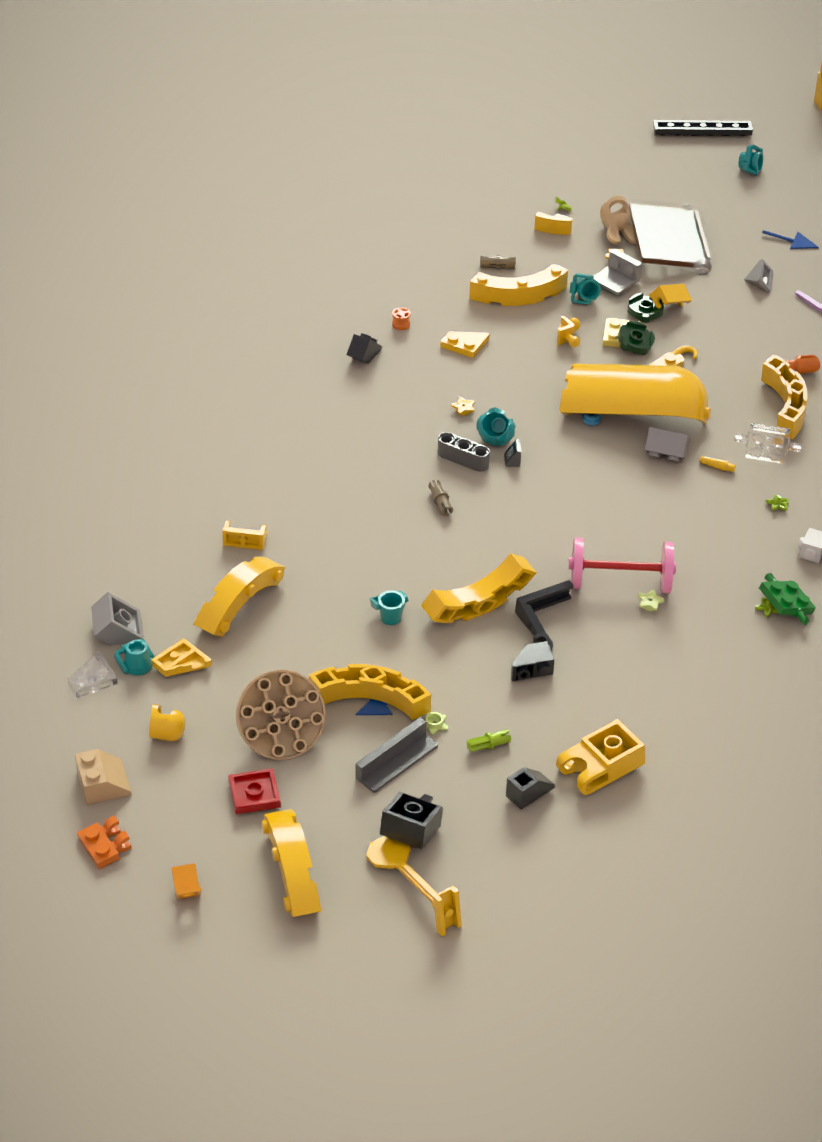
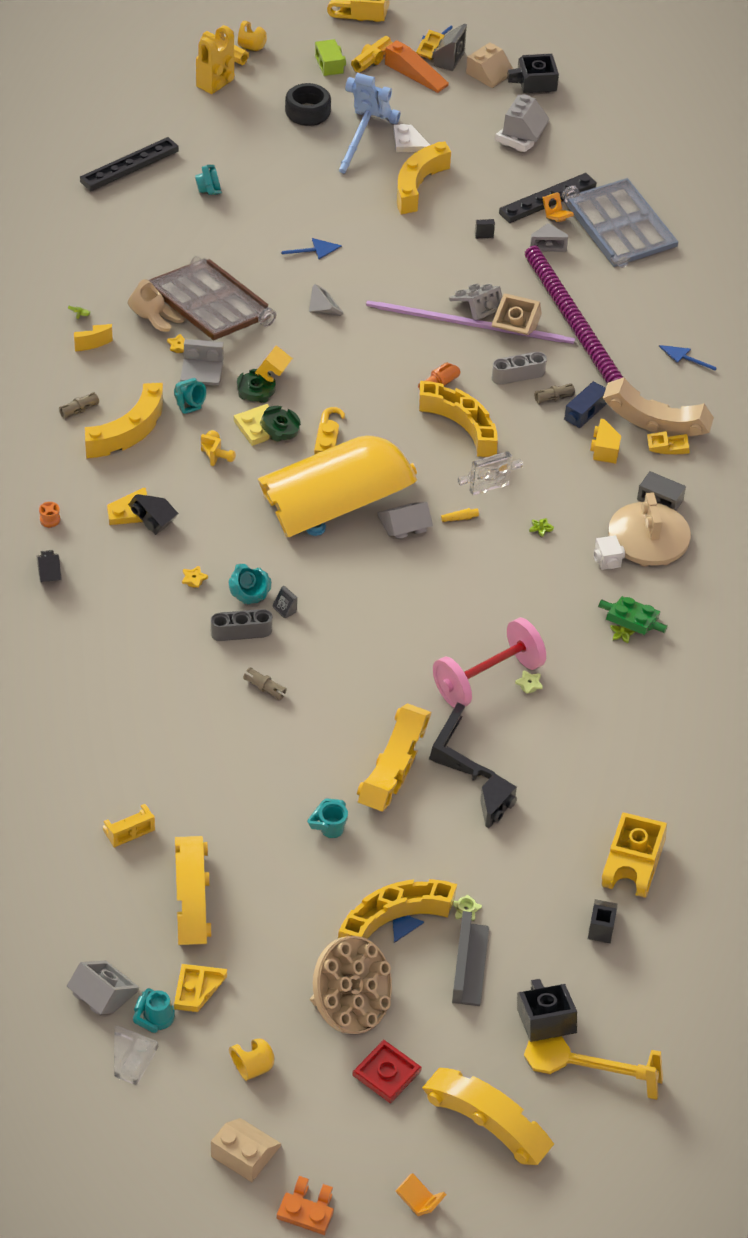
camera: 40 degrees left, 5 degrees up
(475, 349) = (153, 511): none -> black slope
(488, 740) = (528, 896): lime axle -> none

